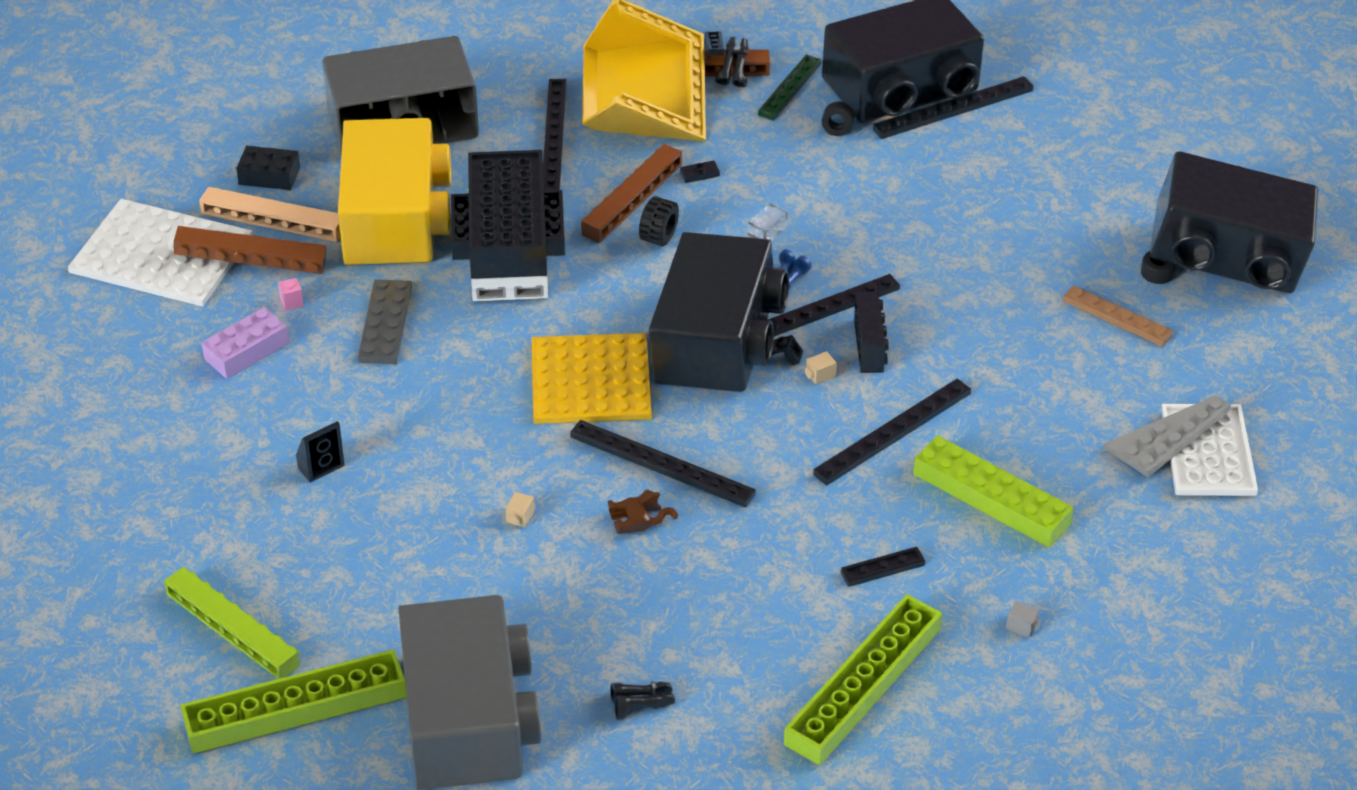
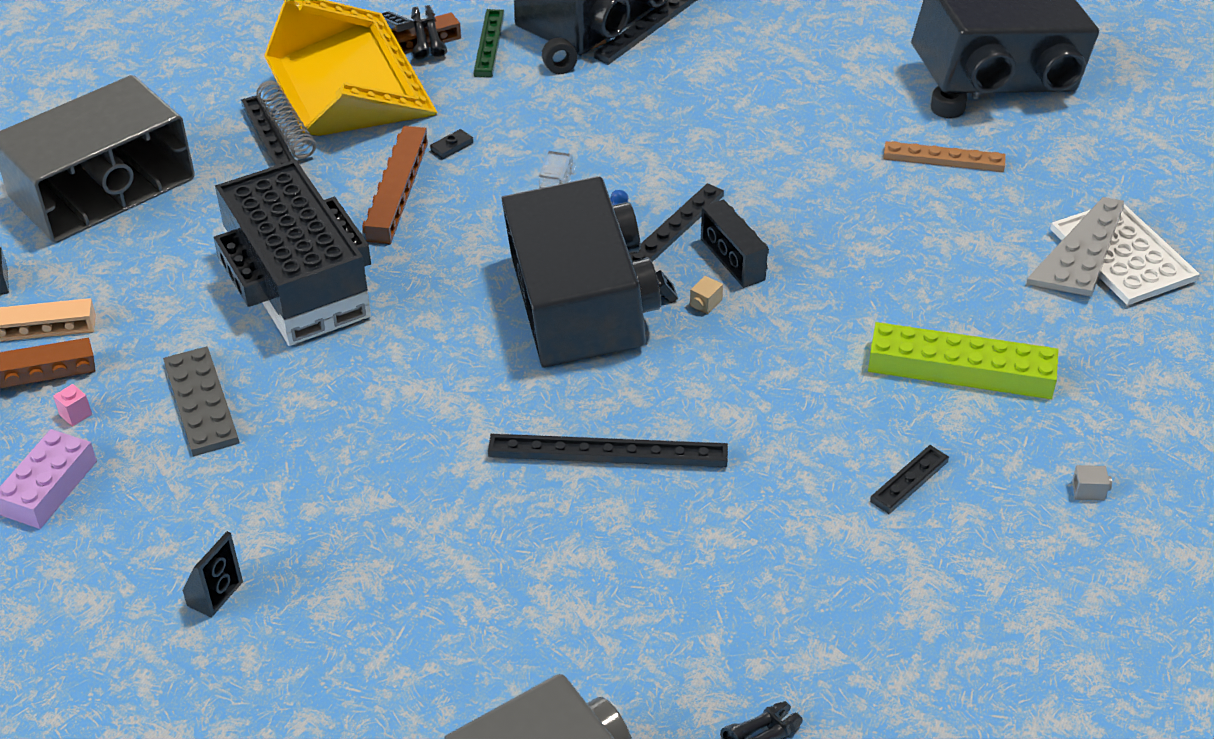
camera: 25 degrees left, 0 degrees up
(389, 191) = (140, 255): yellow piece -> none
(520, 509) = (485, 559): tan brick -> none
(572, 72) = (291, 147): none -> light grey piece
(590, 378) = (470, 386): yellow plate -> none
(635, 511) = (616, 514): reddish brown animal -> none
(658, 221) = (448, 200): black tyre -> none
(862, 679) = (988, 617): lime brick -> none
(891, 432) = (816, 338): black plate -> none

